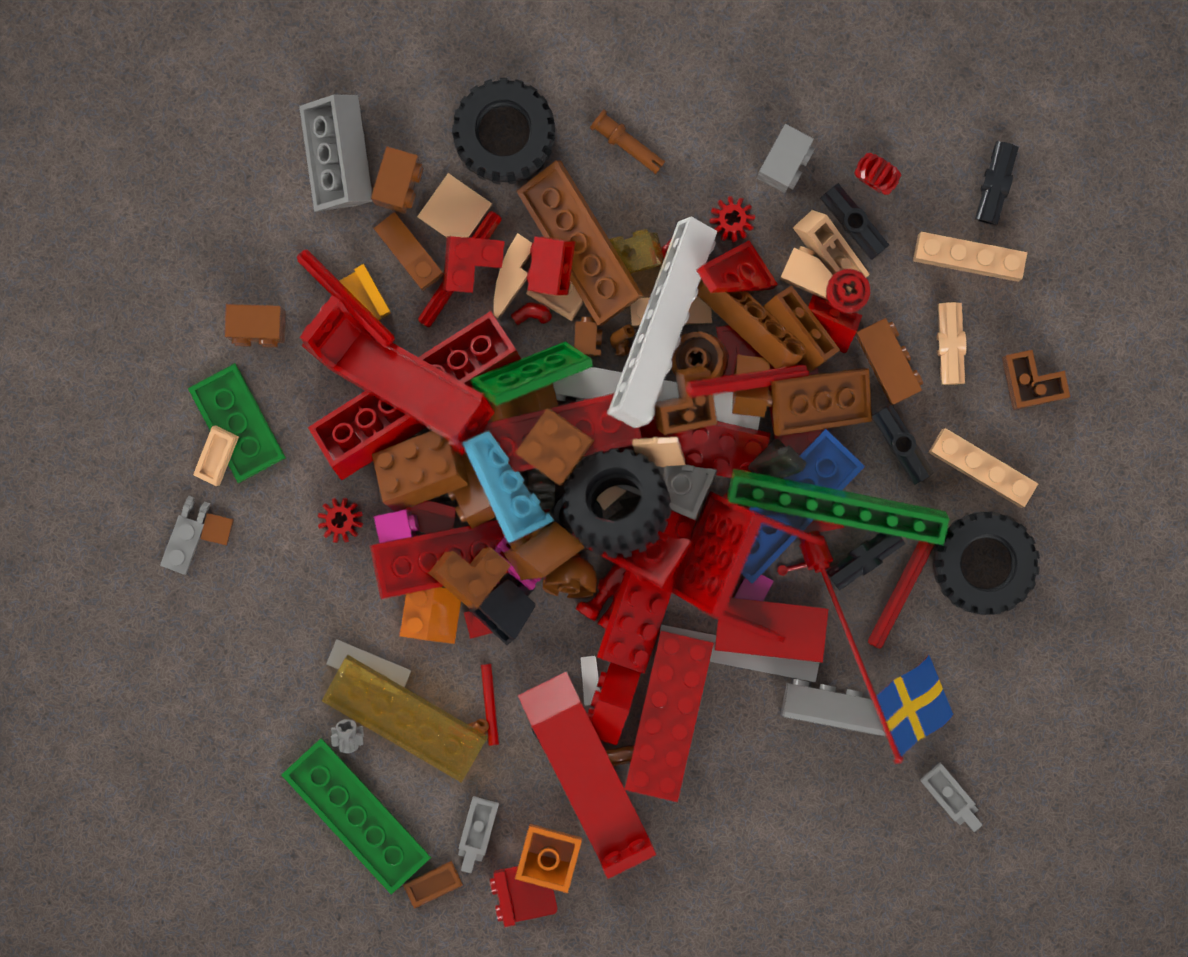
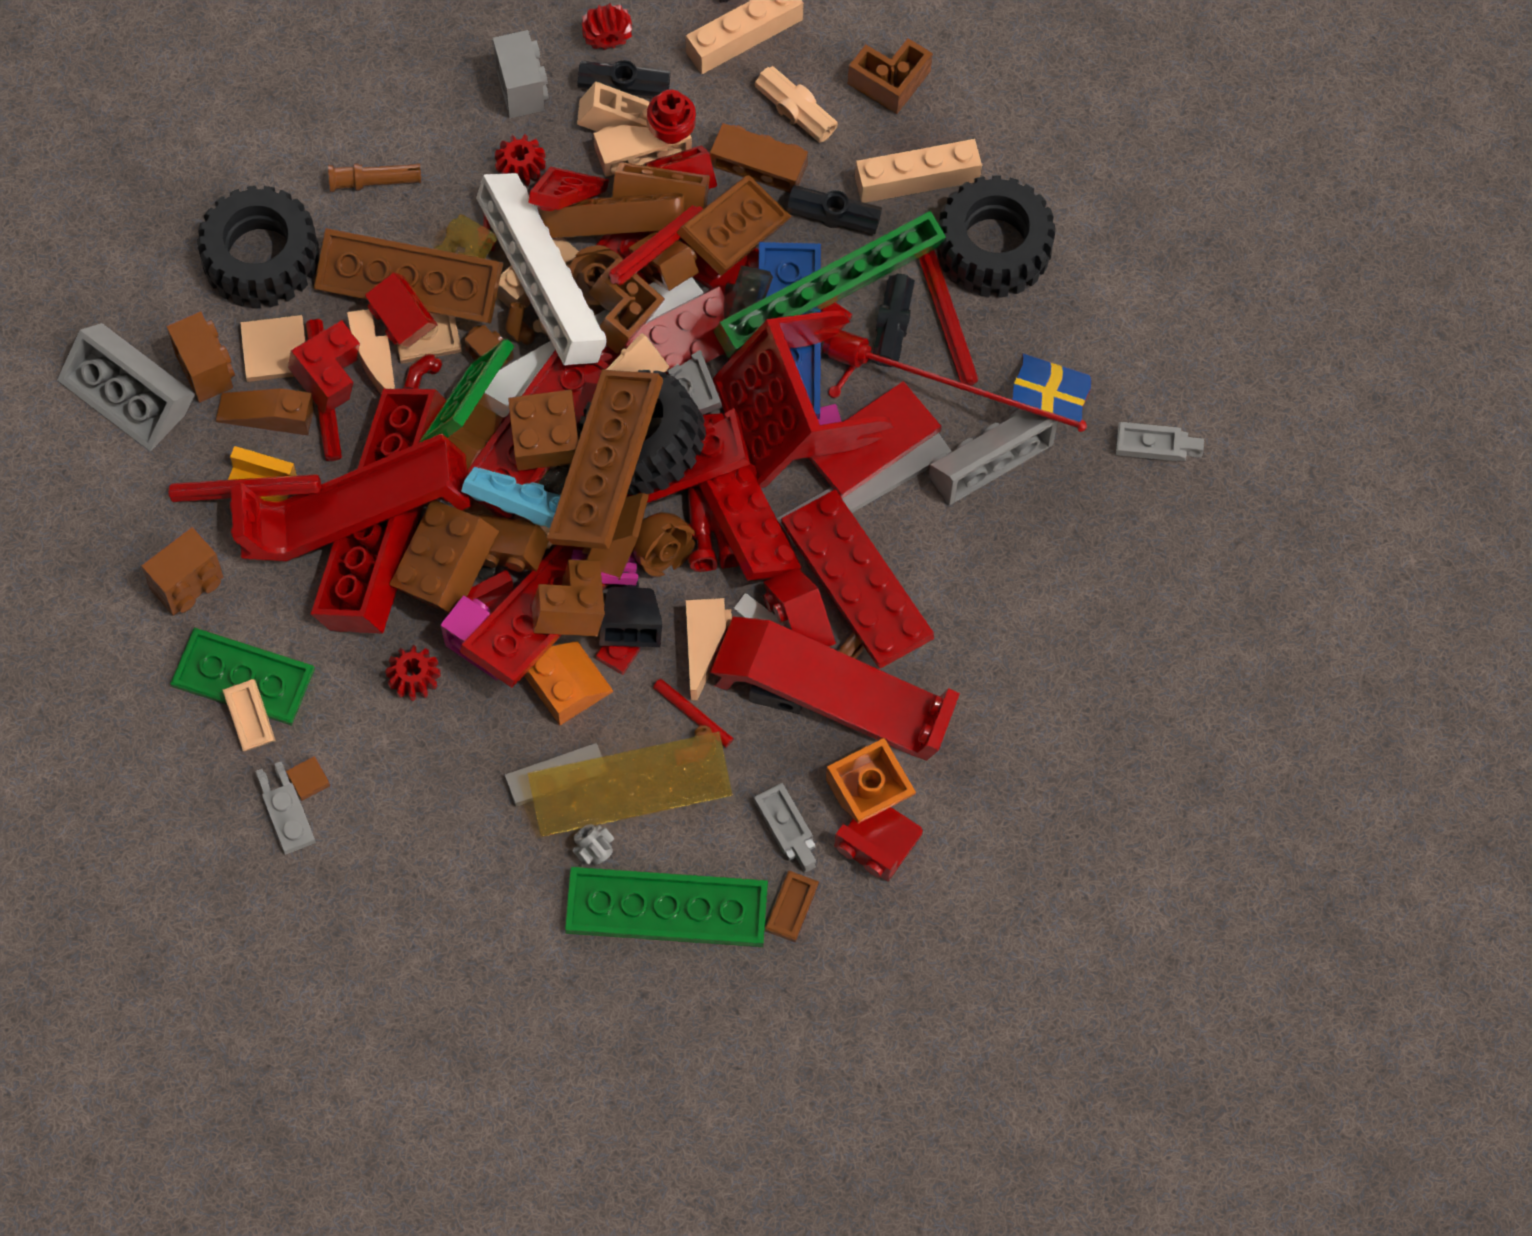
camera: 50 degrees left, 20 degrees down
(541, 663) = (705, 631): none -> light nougat slope
(567, 510) = (605, 459): none -> dark orange plate

